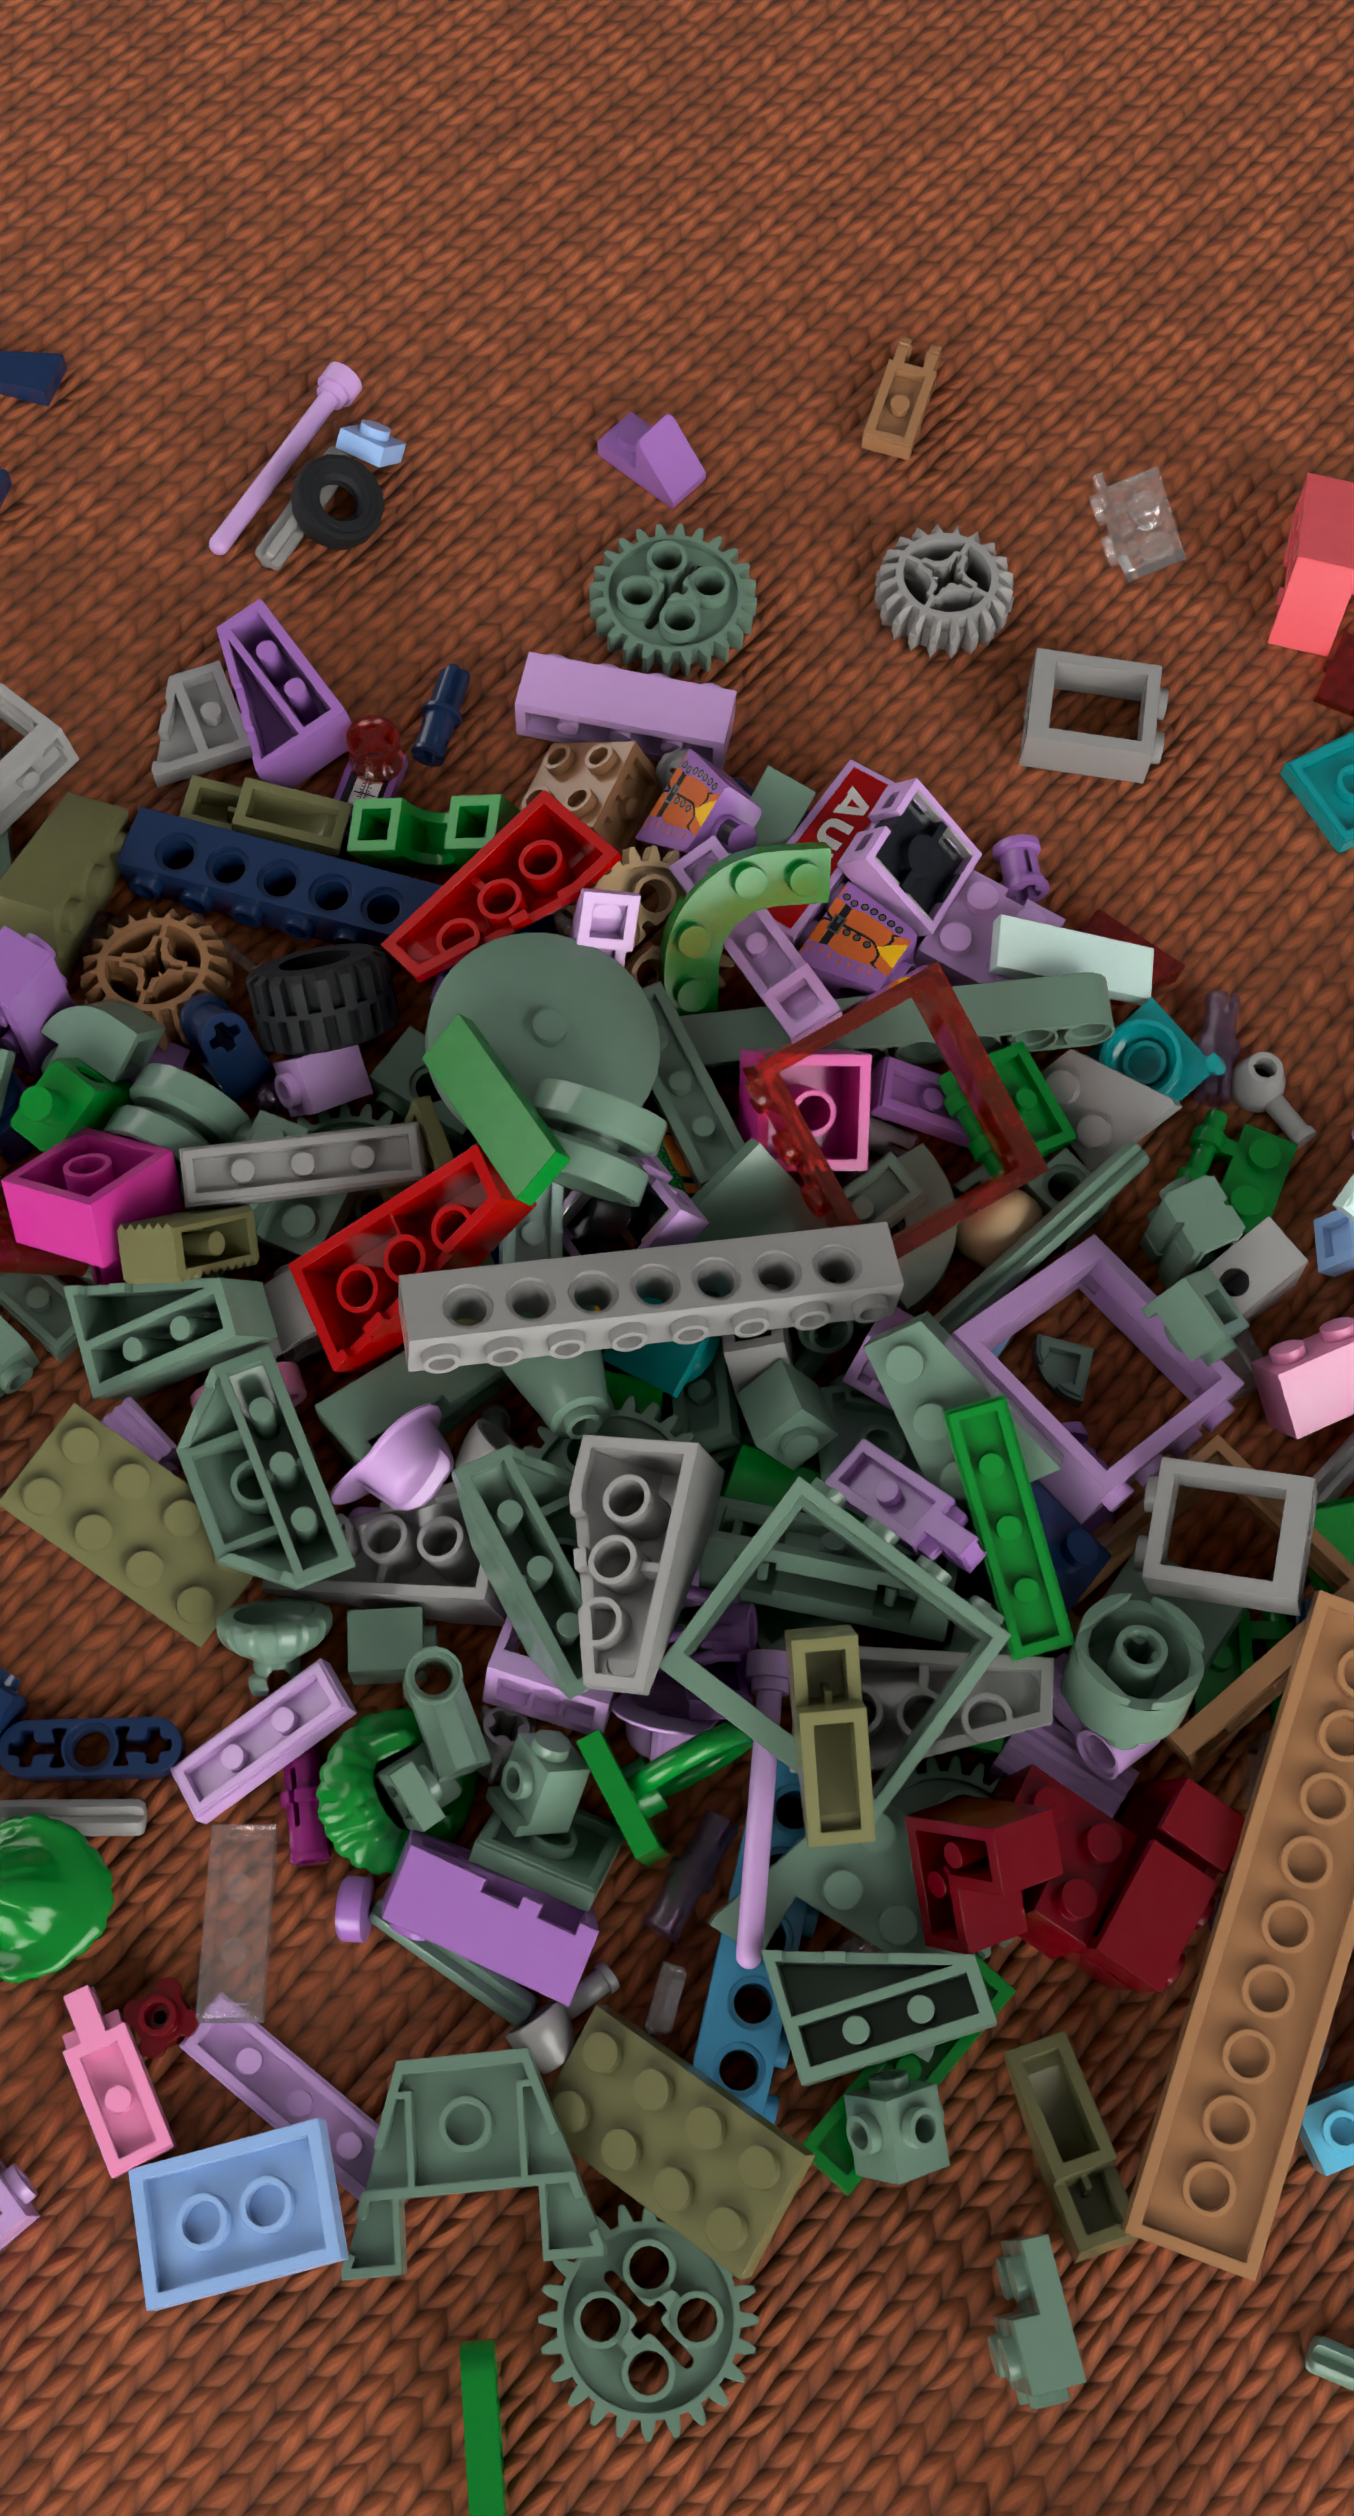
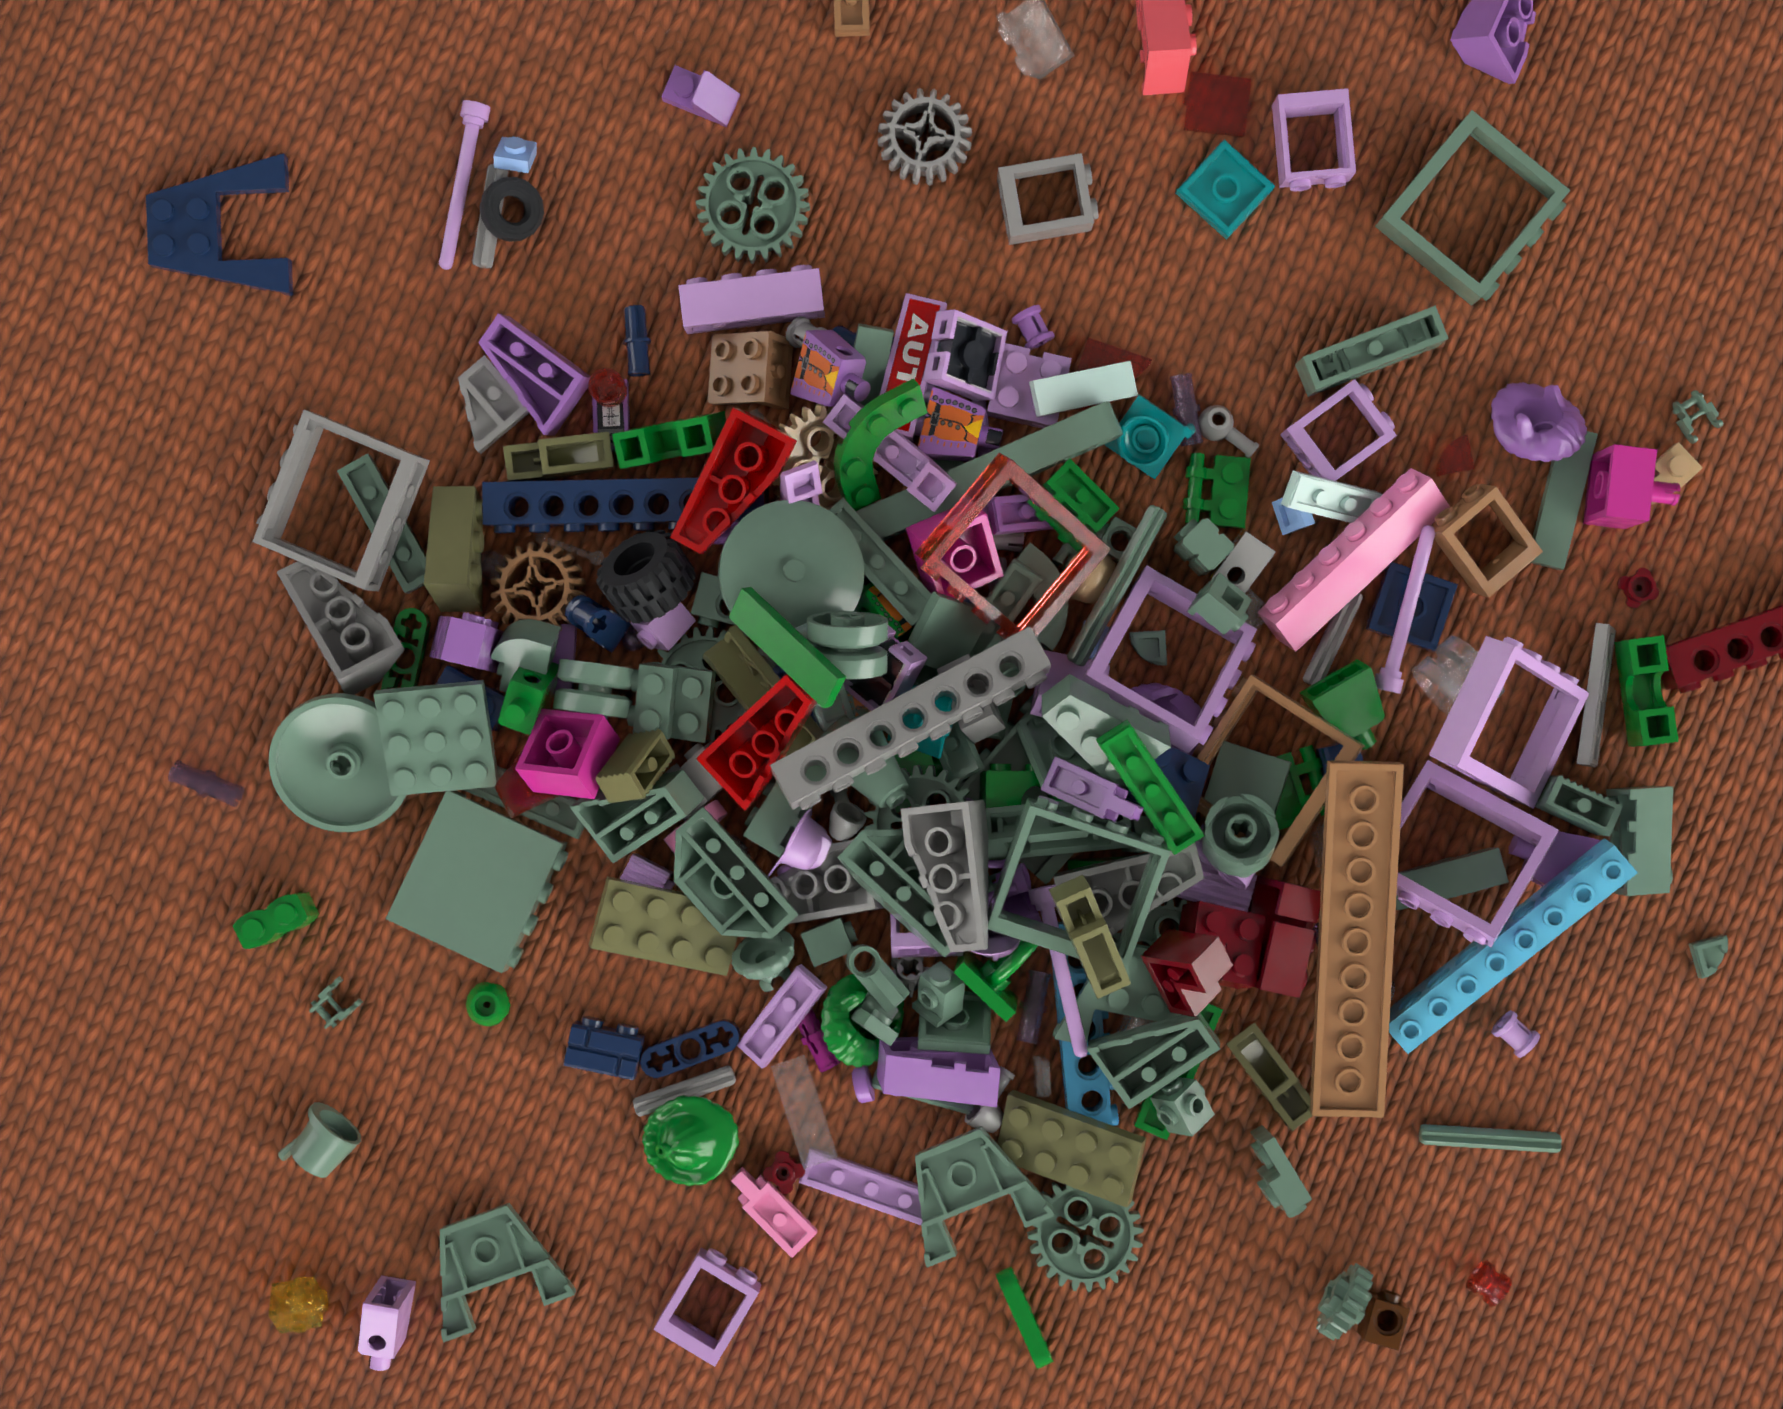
camera: 10 degrees left, 20 degrees up
(237, 2214) = (862, 1254): light blue plate -> none
(301, 1166) = (679, 694): light grey tile -> none
(787, 1414) = (1006, 749): sand green brick -> none
(1104, 1105) = (1126, 476): light grey wing -> none
(1288, 1584) = (1308, 733): light grey window -> none

